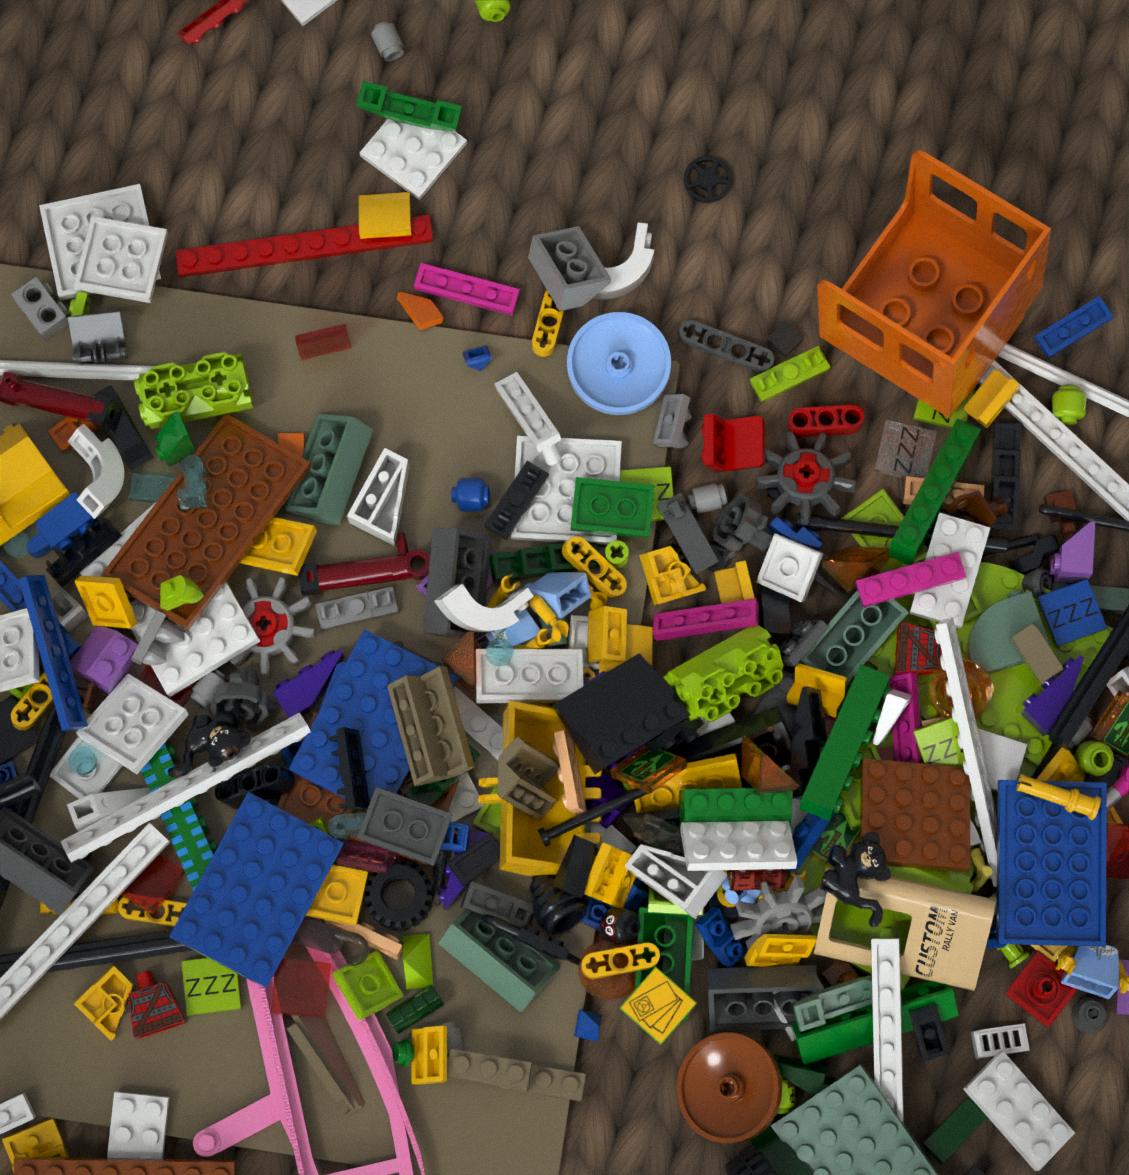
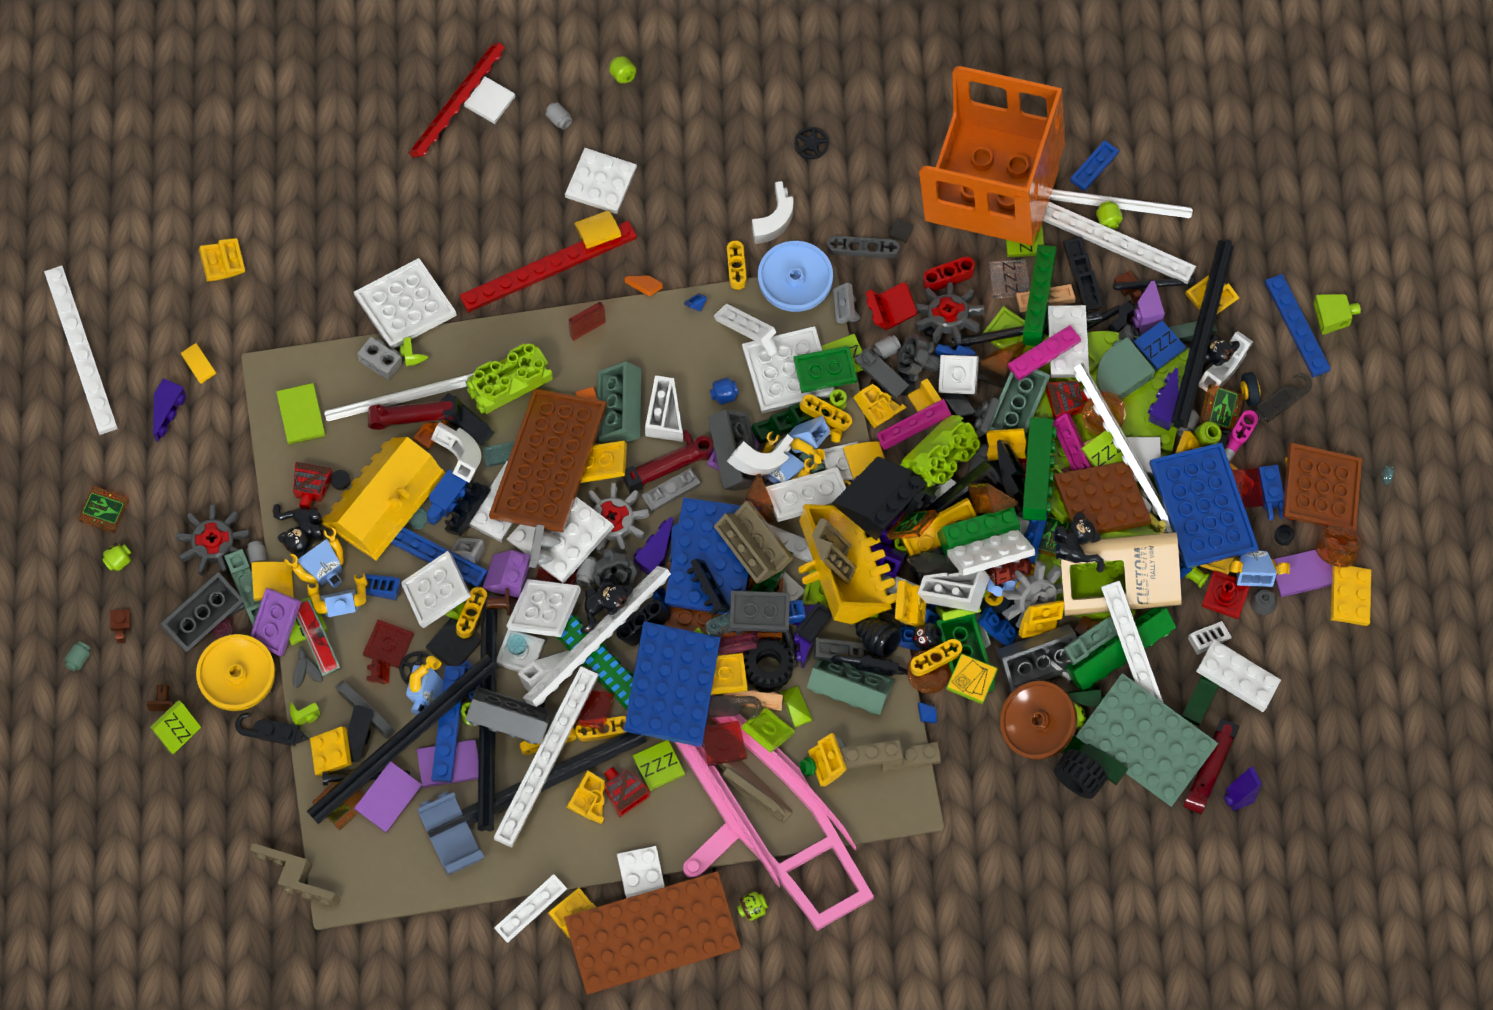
camera: 20 degrees left, 10 degrees down
(53, 652) = (474, 576): blue plate -> none
(97, 337) = (427, 365): hinge -> none
(106, 601) = (497, 532): yellow plate -> none
(120, 259) = (426, 308): white plate -> none
(174, 441) = (507, 414): green slope -> none
(179, 592) = (548, 507): lime plate -> none
(195, 489) = (529, 432): clear light blue leg -> none
(407, 109) = (590, 155): green slope -> none
(414, 1009) = (805, 736): dark green axle -> none
(466, 289) = (671, 261): dark pink plate -> none
(499, 652) = (782, 483): clear light blue tile -> none
(516, 500) = (757, 384): black plate -> none
(568, 267) = (737, 224): light grey slope -> none
(569, 772) = (858, 544): light nougat plate -> none
(575, 867) = (885, 602): black slope -> none
(589, 815) = (857, 590): black bar -> none
(607, 634) = (850, 452): yellow panel -> none
(789, 374) = (913, 252): lime plate -> none
(893, 707) = (1062, 439): white slope -> none
(928, 1032) = (1159, 643): black slope -> none
(979, 510) = (1072, 296): reddish brown bracket -> none
(991, 398) = (1056, 225): yellow panel -> none
(1036, 653) = (1145, 373): dark tan slope -> none
(1071, 800) = (1202, 458): yellow pin -> none

